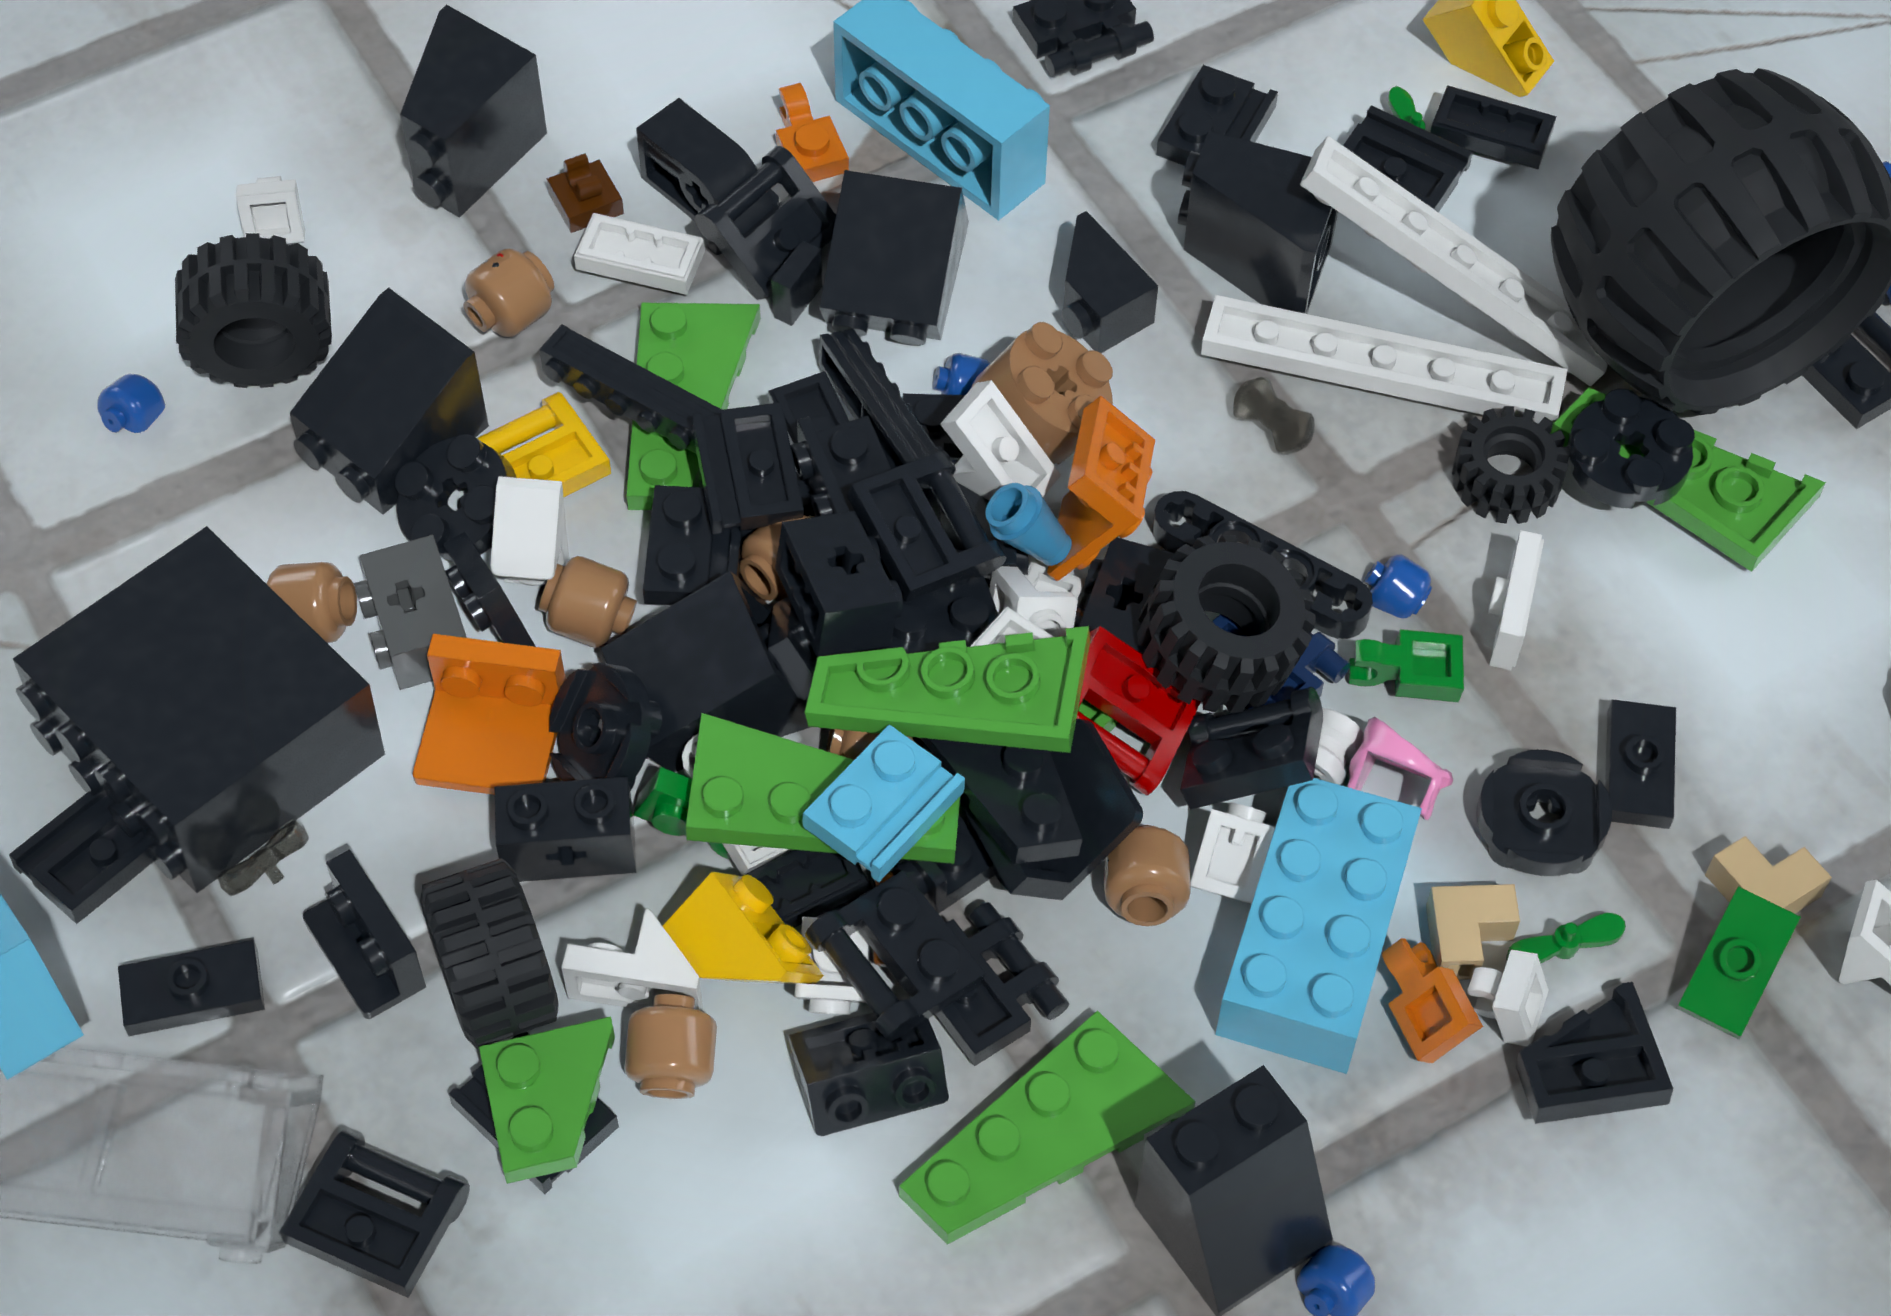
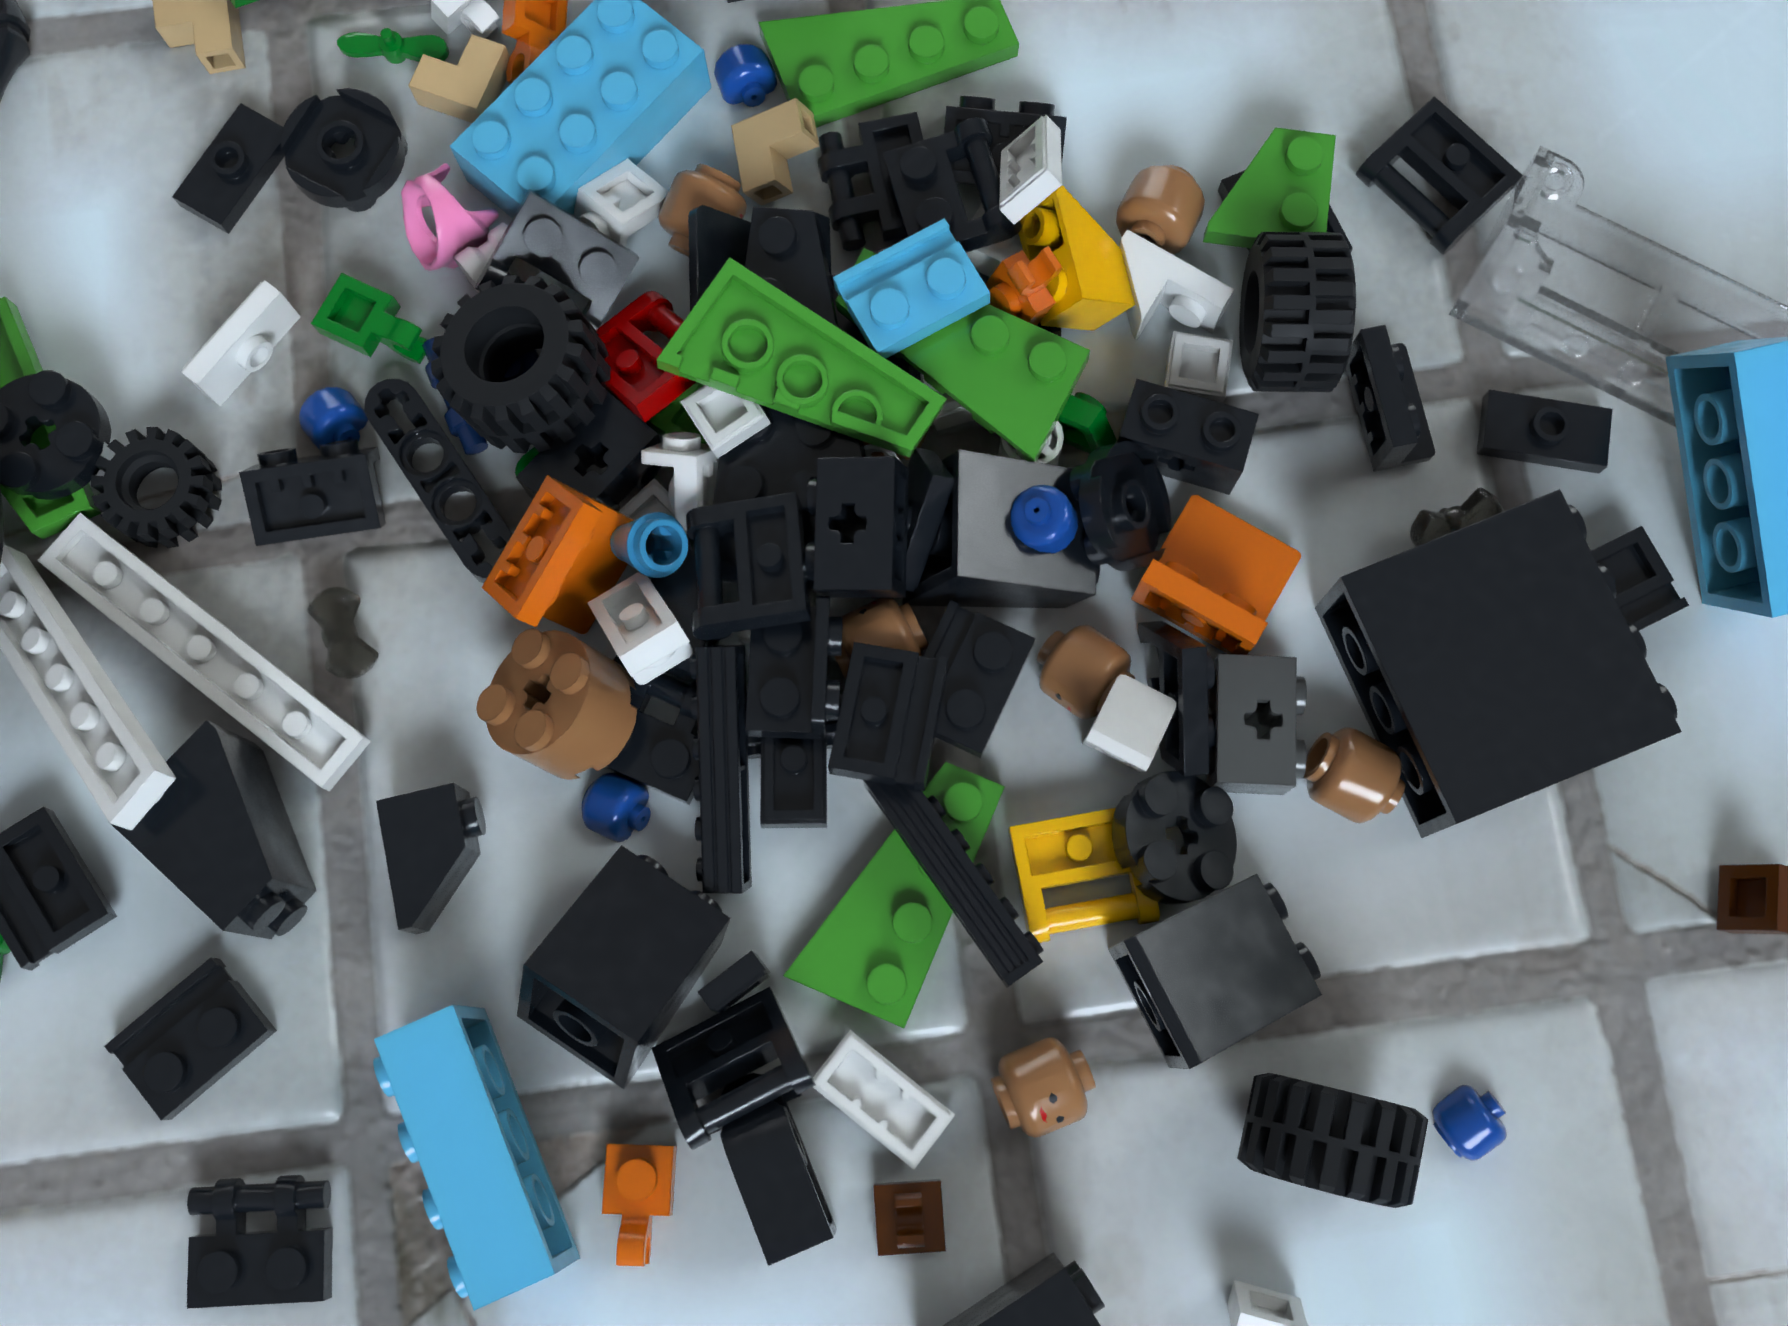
camera: 155 degrees left, 20 degrees up
(574, 919) = (1198, 365): none -> white tile
(671, 668) = (1044, 519): none -> blue piece
(781, 867) = (1021, 284): none -> orange plate
(817, 977) = (1030, 169): none -> white plate
(1111, 964) = (765, 145): none -> tan piece
(1186, 1054) = (745, 75): none -> blue piece
(1371, 510) = (313, 494): none -> black bracket

